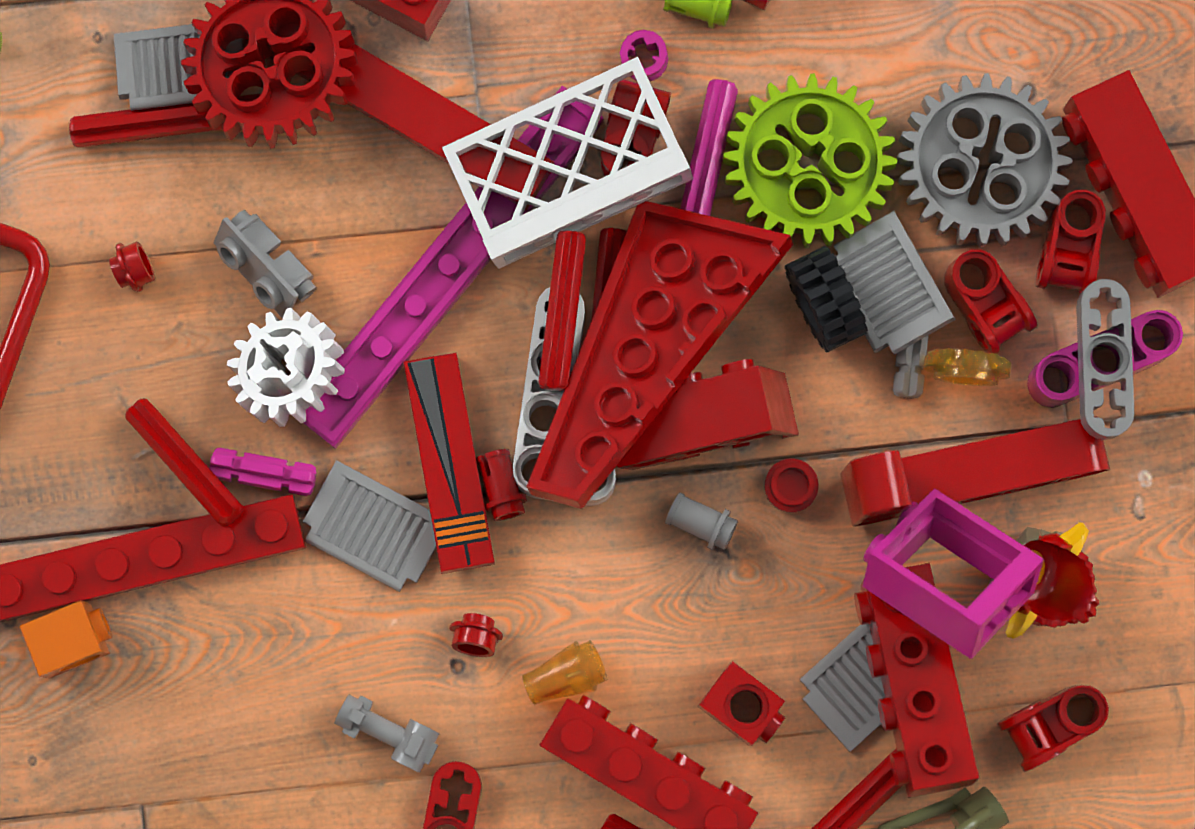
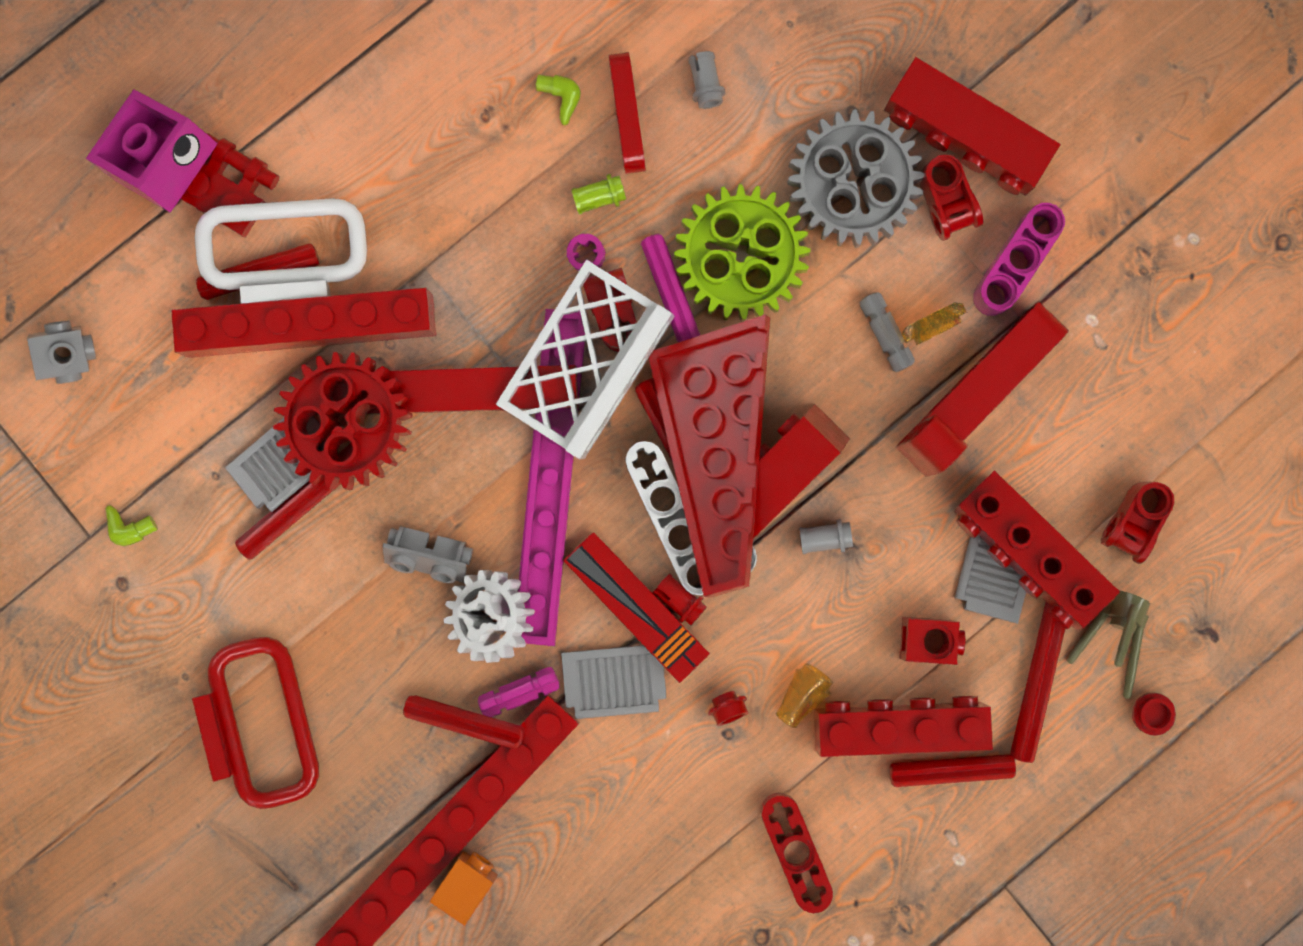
camera: 30 degrees left, 5 degrees up
(131, 266) = (342, 614): red plate -> none
(412, 744) = (734, 806): light grey bar -> none
(562, 310) = (648, 461): red axle -> none
(791, 485) = (868, 475): red plate -> none
(826, 299) = (814, 339): black tyre -> none
(892, 285) = (847, 303): light grey window -> none
(973, 540) = (1017, 438): dark pink window -> none
(989, 304) = (921, 271): red piece -> none
(1065, 582) = (1074, 432): red hair -> none
(1091, 319) = (1042, 262): light grey beam -> none

